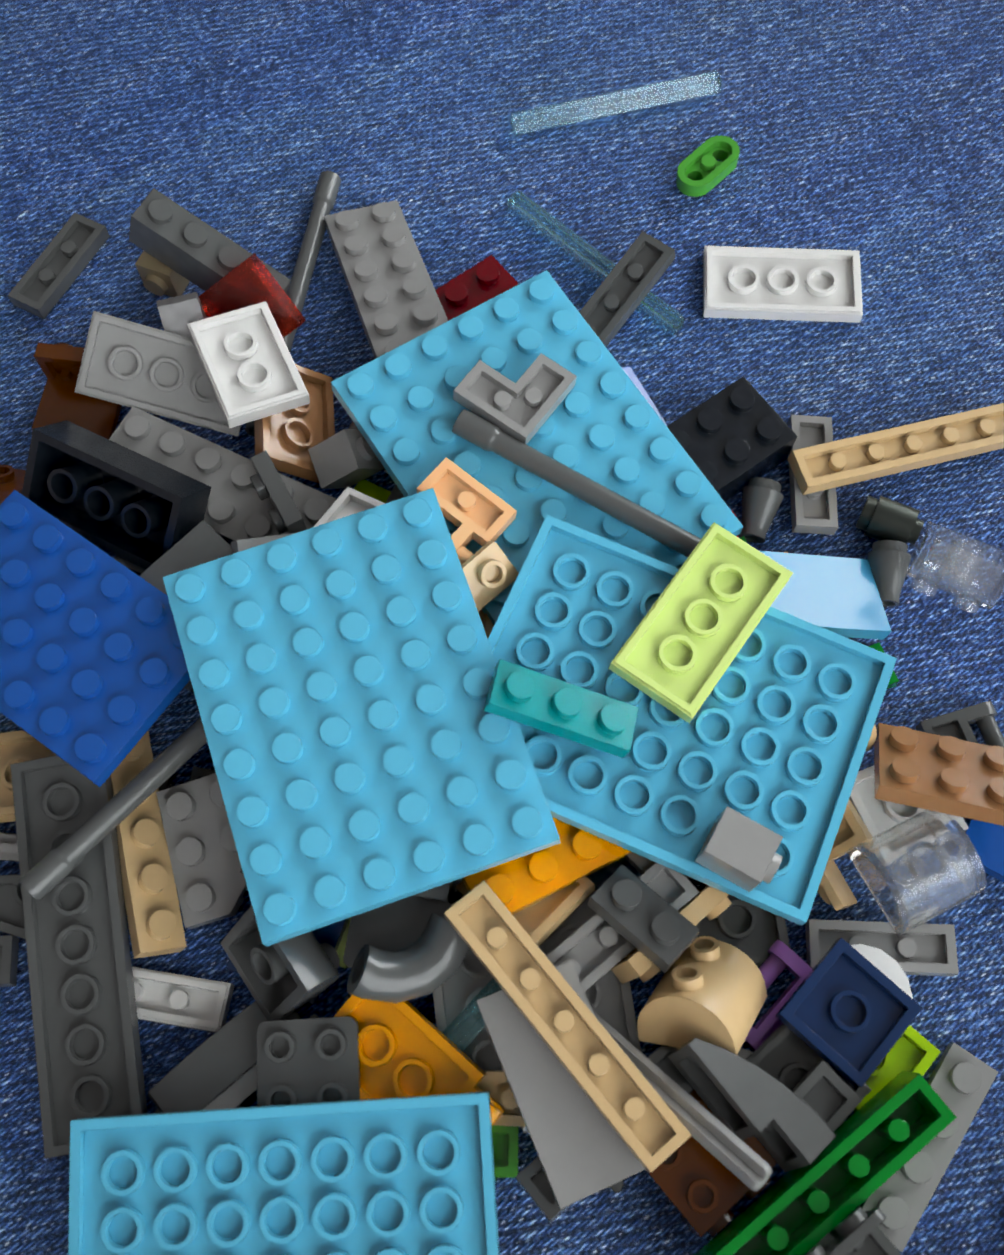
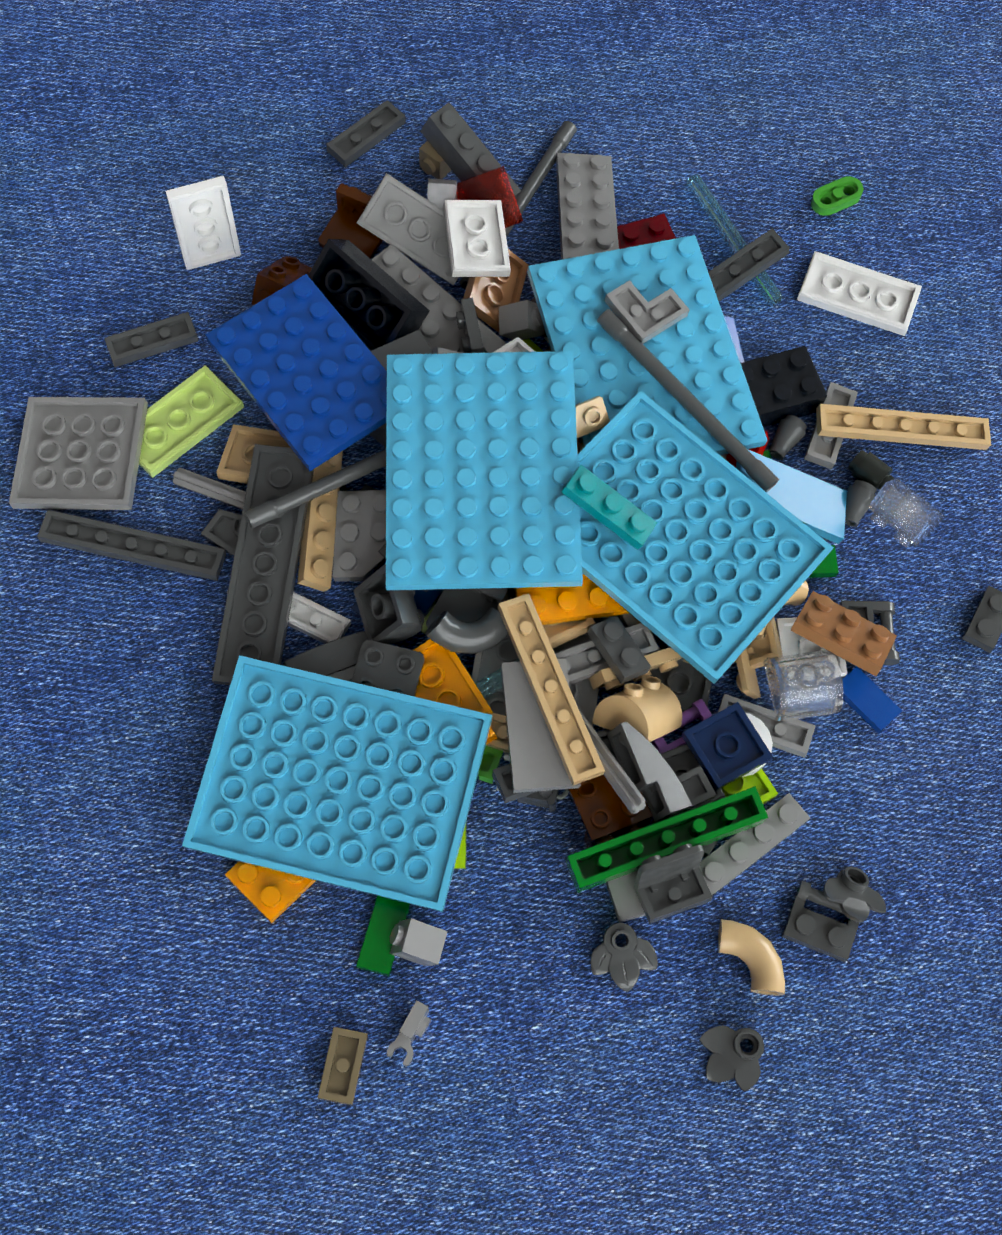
camera: 10 degrees right, 0 degrees up
(468, 506) = (592, 371): light nougat plate -> none
(615, 103) = (789, 131): clear light blue axle -> none
(700, 622) = (715, 485): yellowish green tile -> none
(741, 850) = (690, 622): light grey brick -> none

